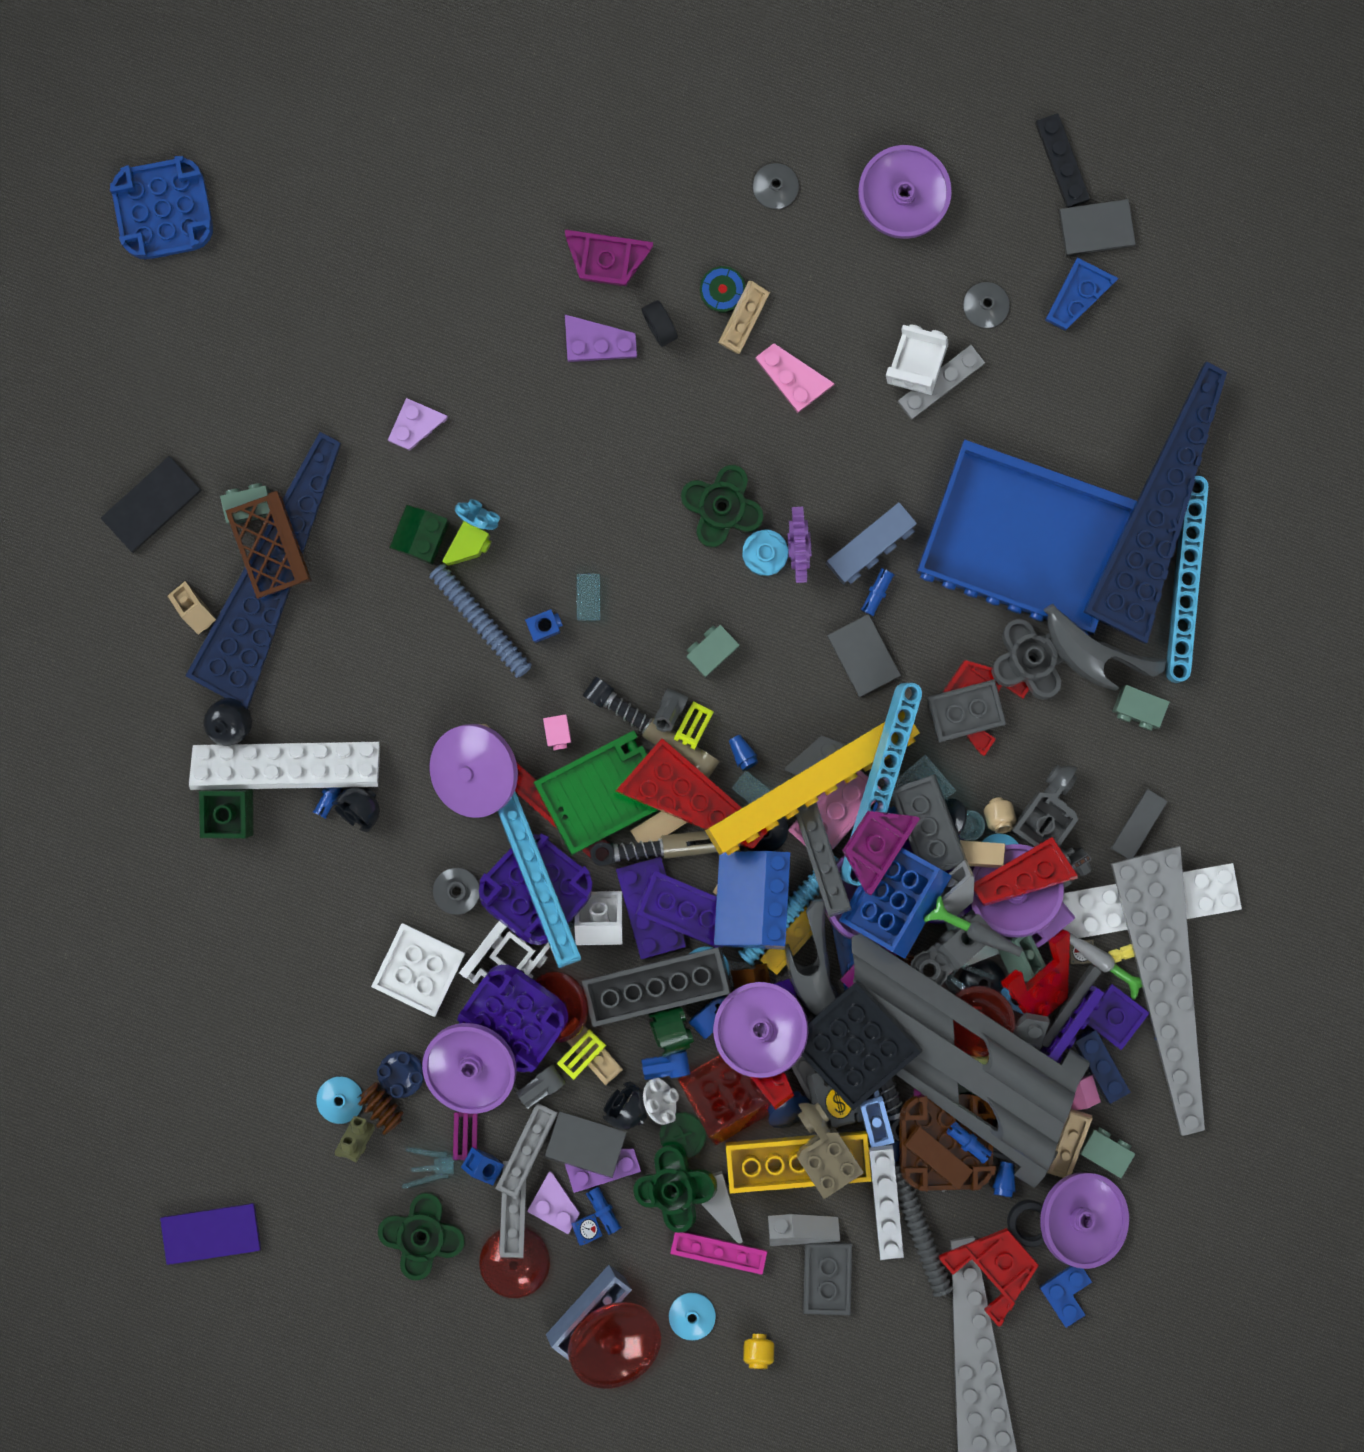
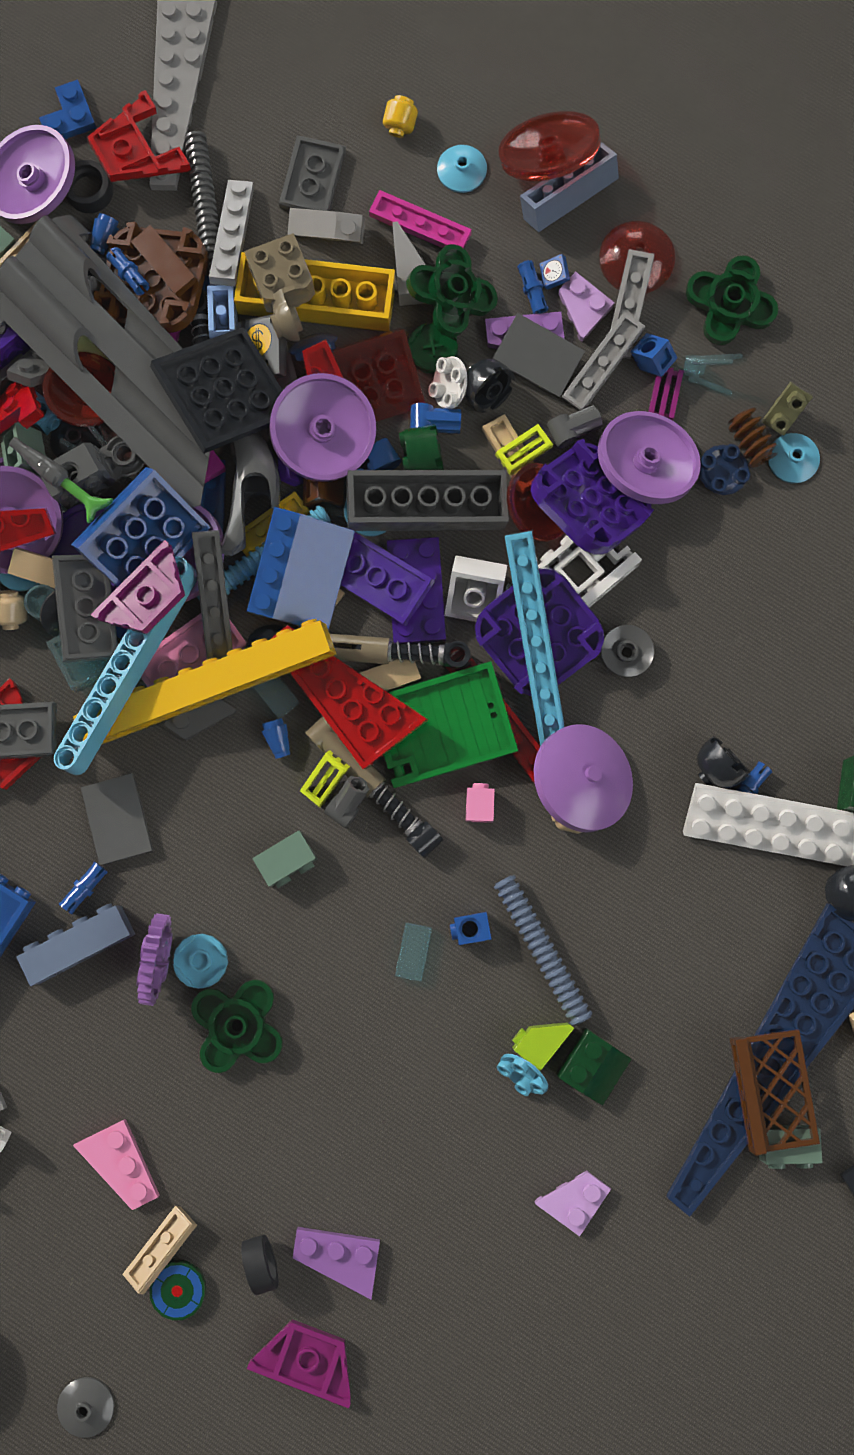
camera: 165 degrees left, 5 degrees down
(418, 969) = (684, 575): white plate -> none
(959, 889) = (65, 530): light grey slope -> none

